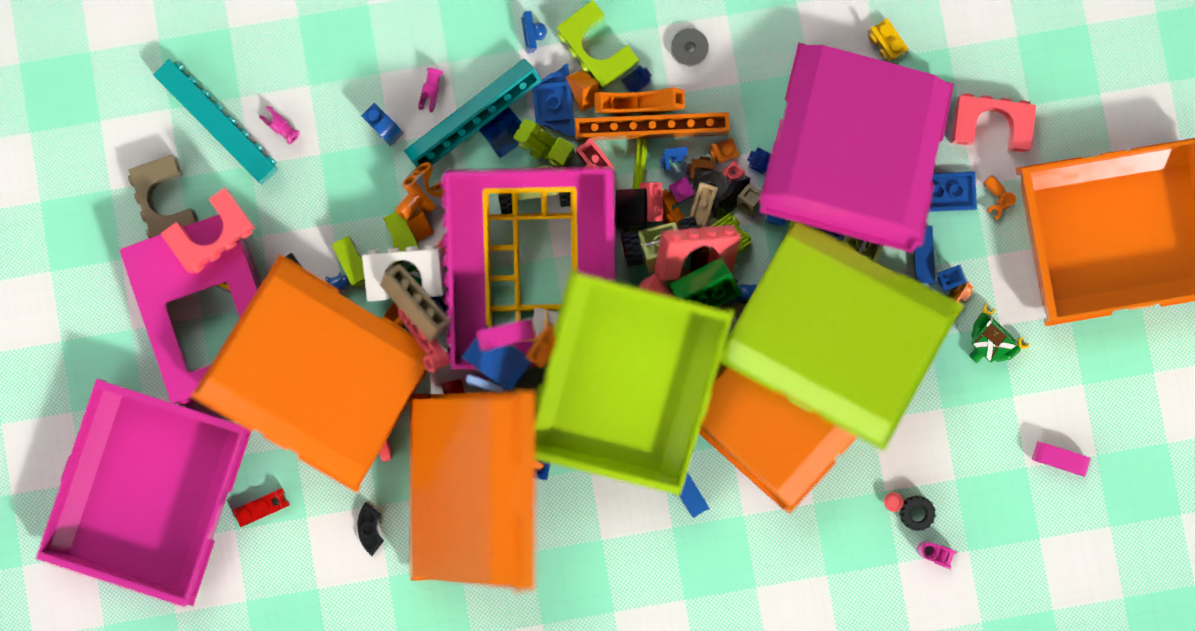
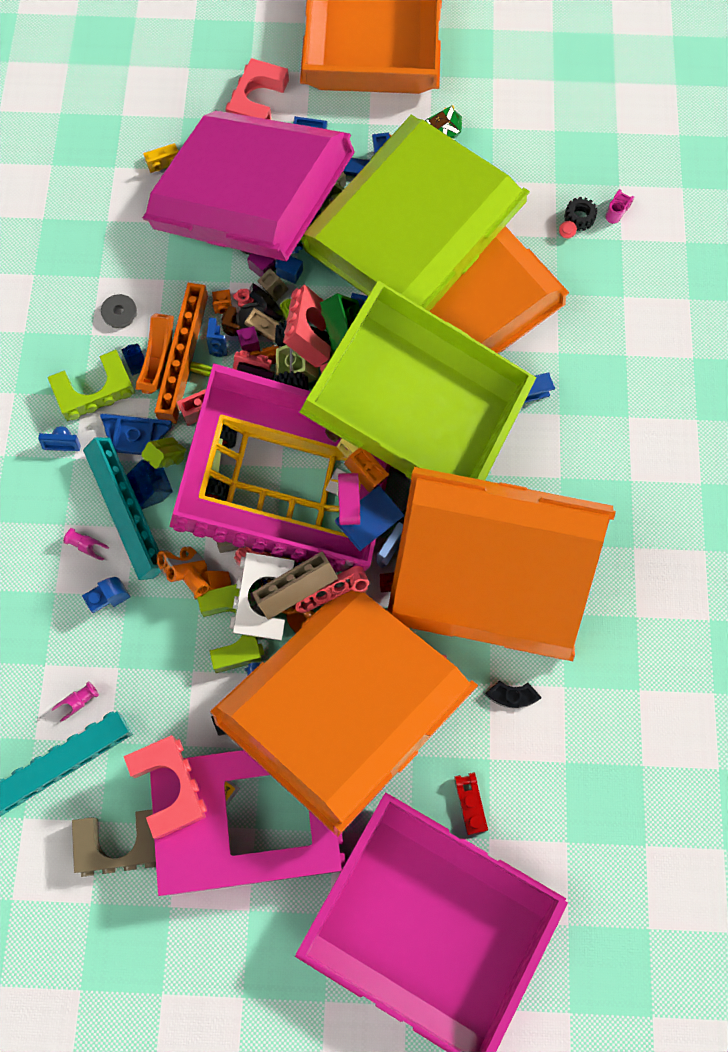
camera: 80 degrees left, 15 degrees down
(560, 153) = (182, 431): lime brick -> none
(583, 89) = (129, 403): orange slope -> none
(759, 160) = (240, 271): clear blue brick -> none
(1005, 199) = (324, 99): orange bar -> none
(1061, 459) = (553, 101): dark pink beam -> none

